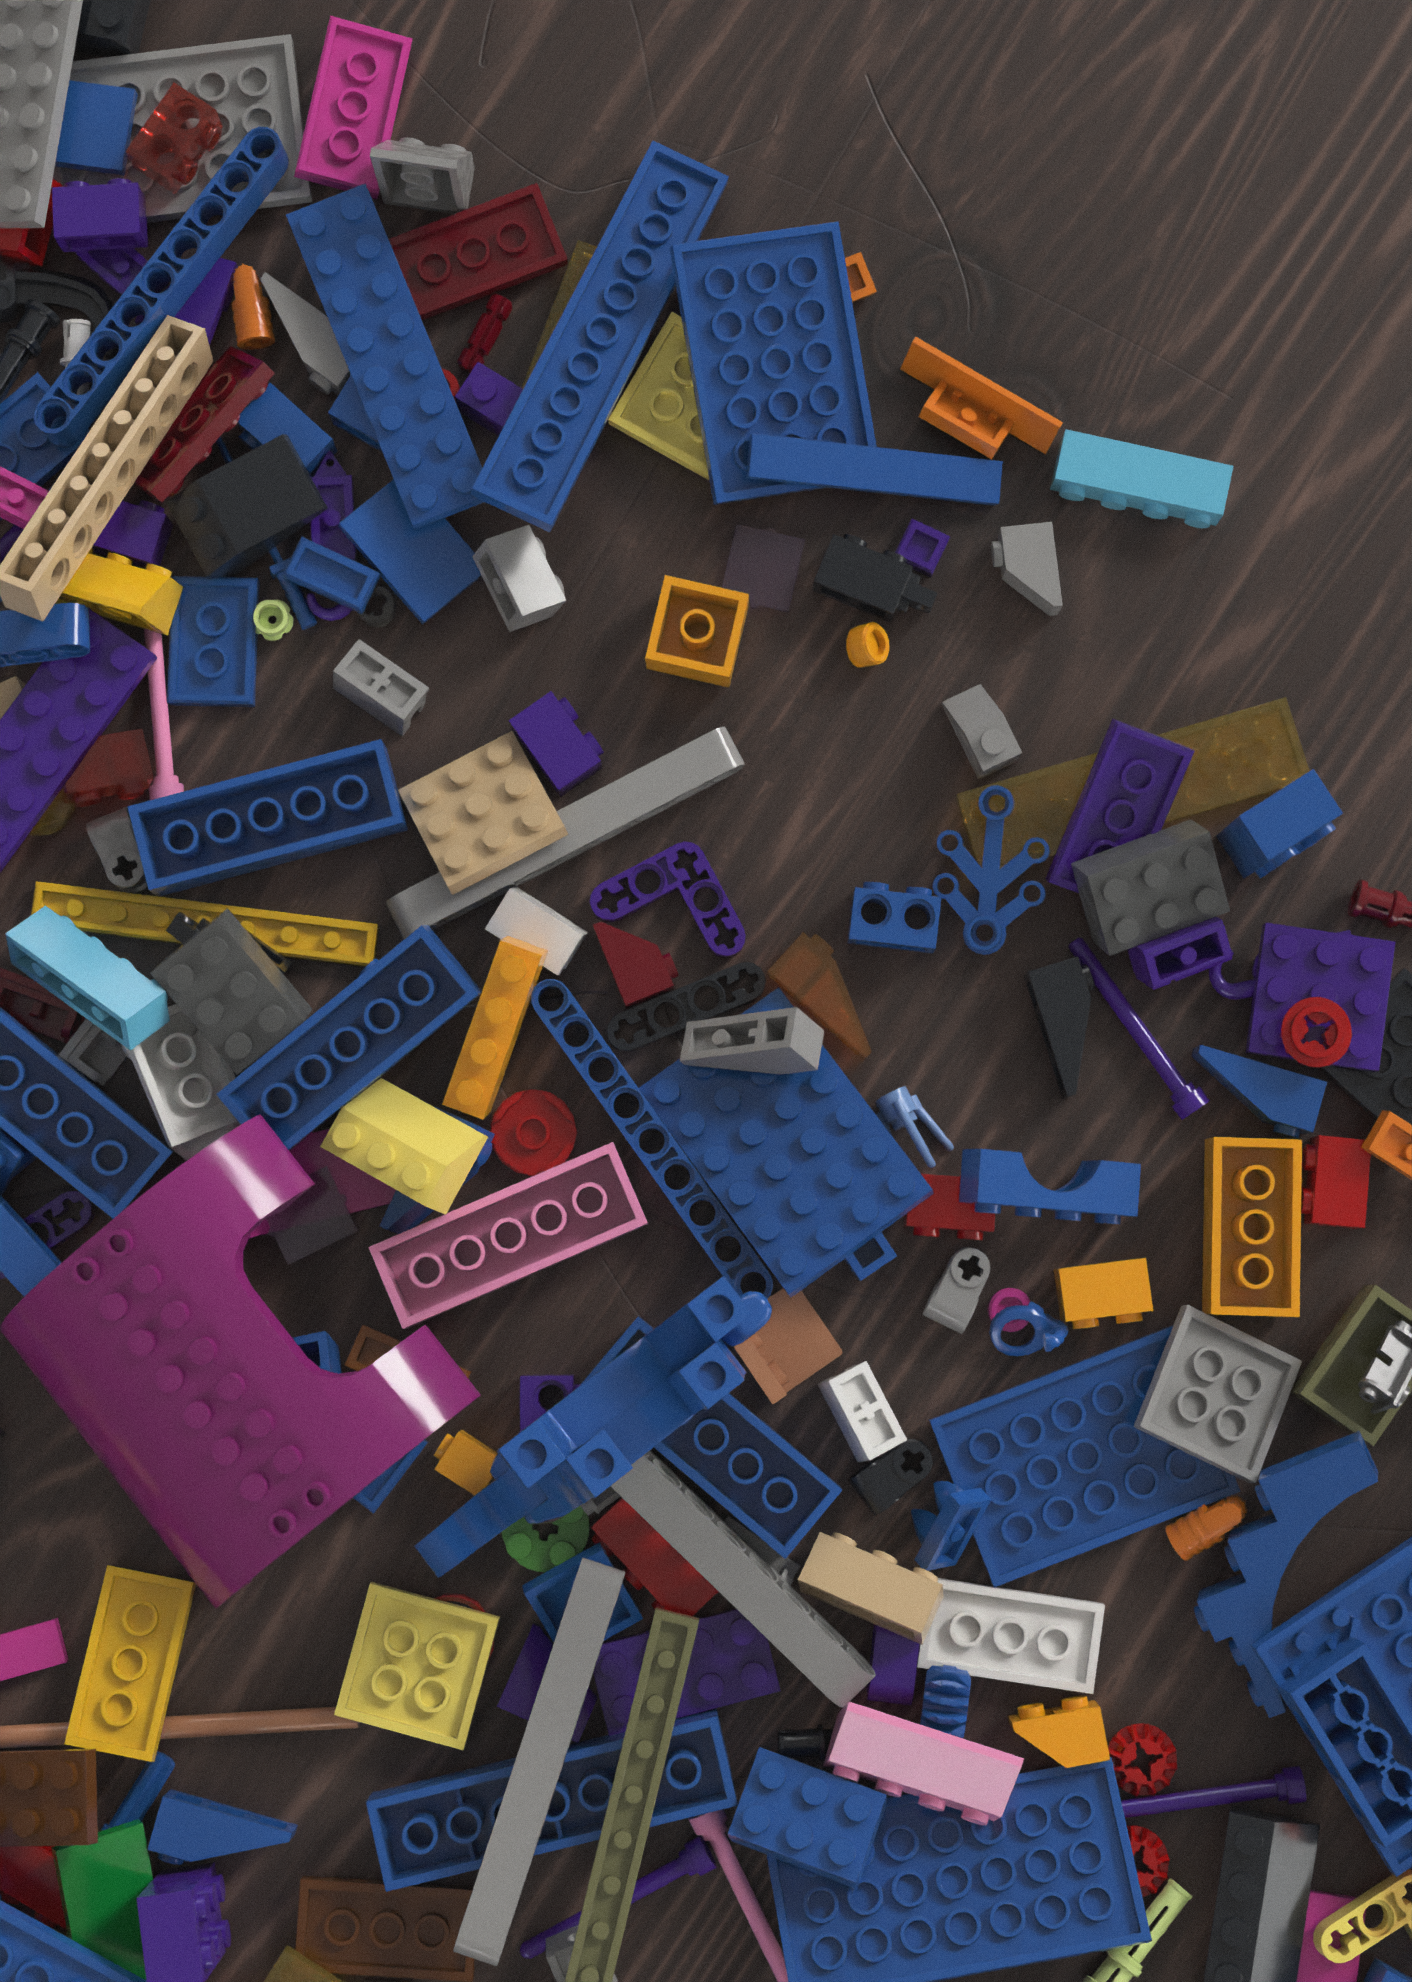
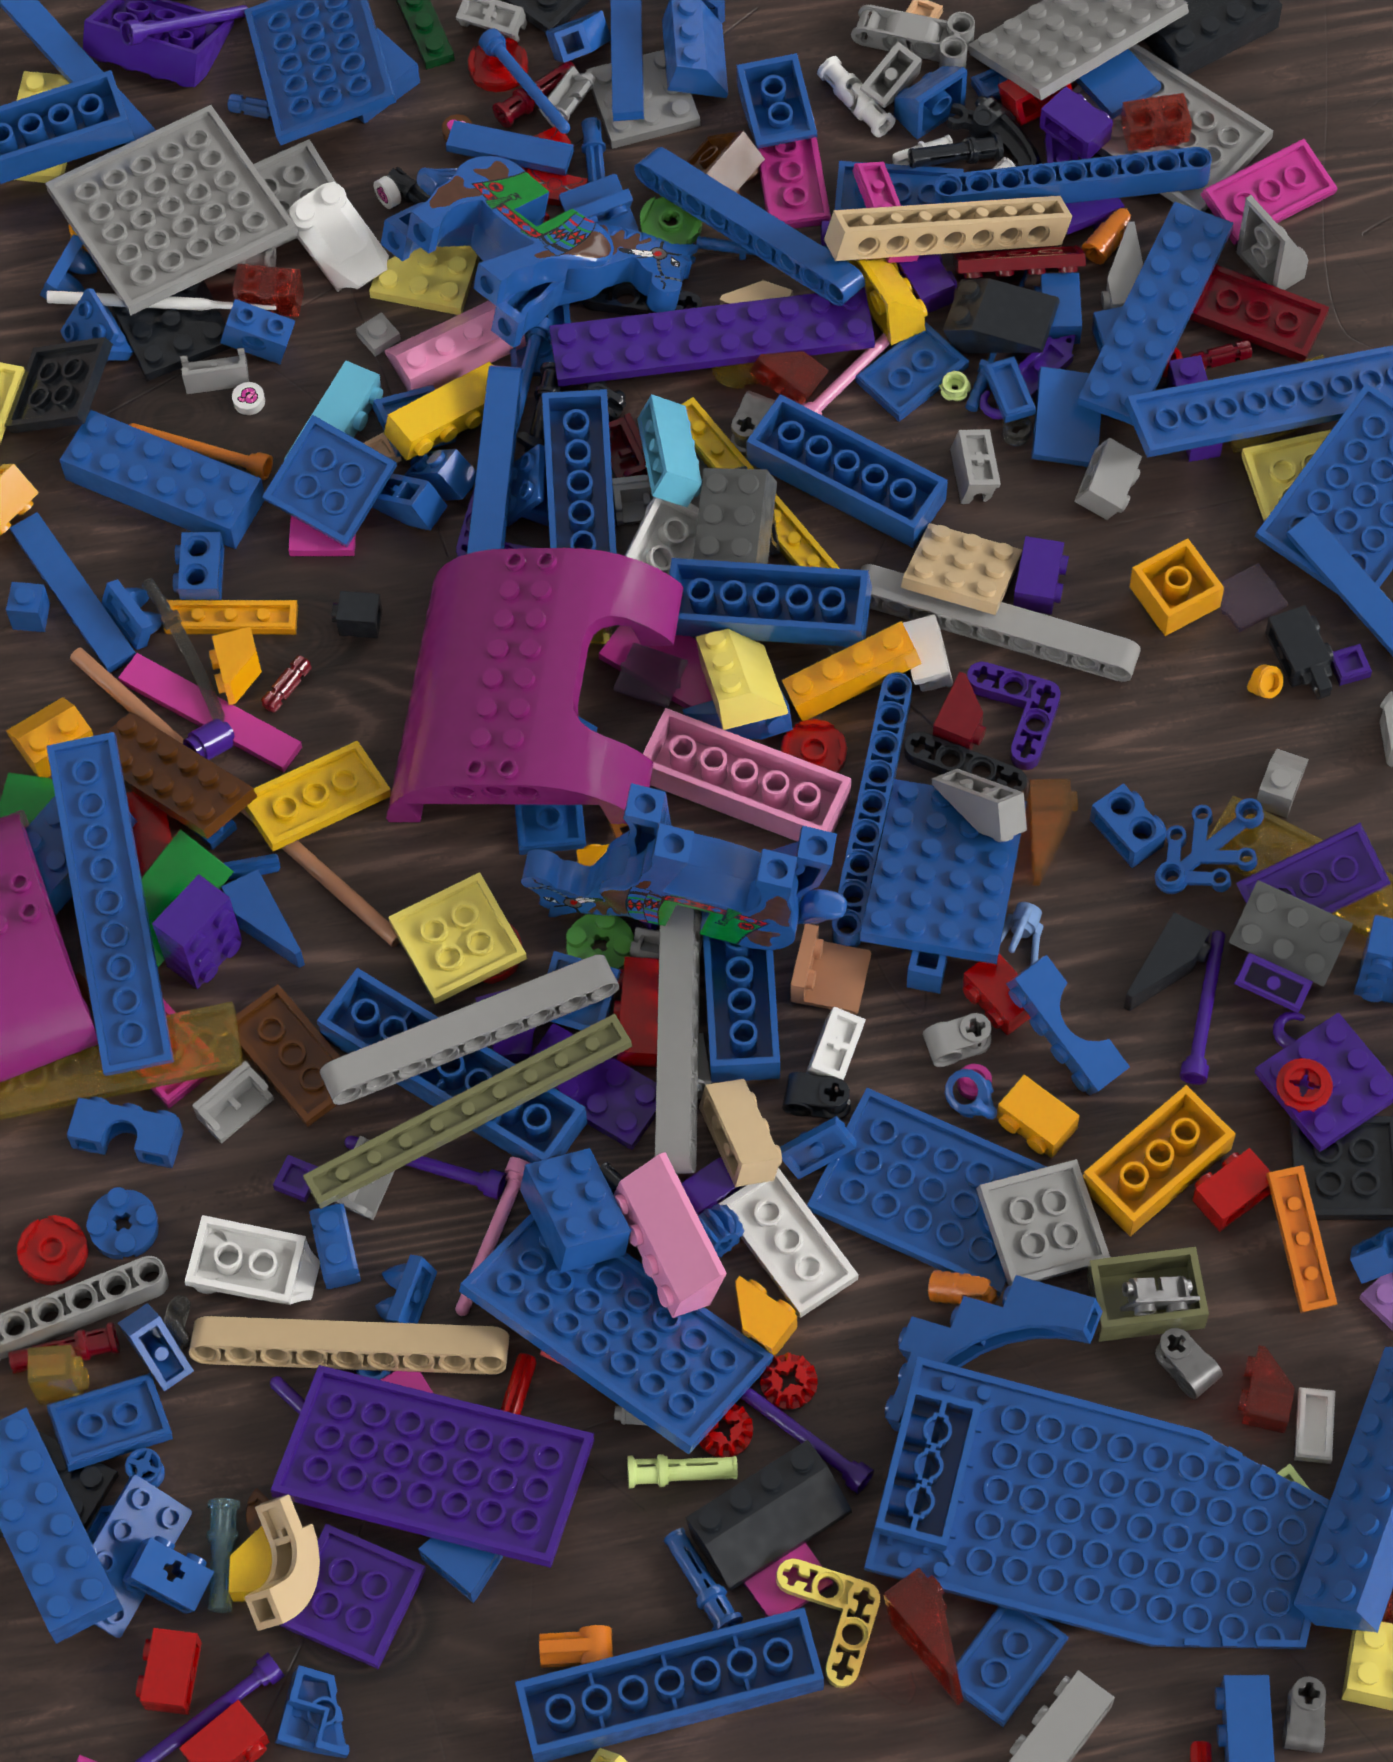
camera: 50 degrees right, 20 degrees down
(1269, 1092) = (1246, 1104): blue slope -> none

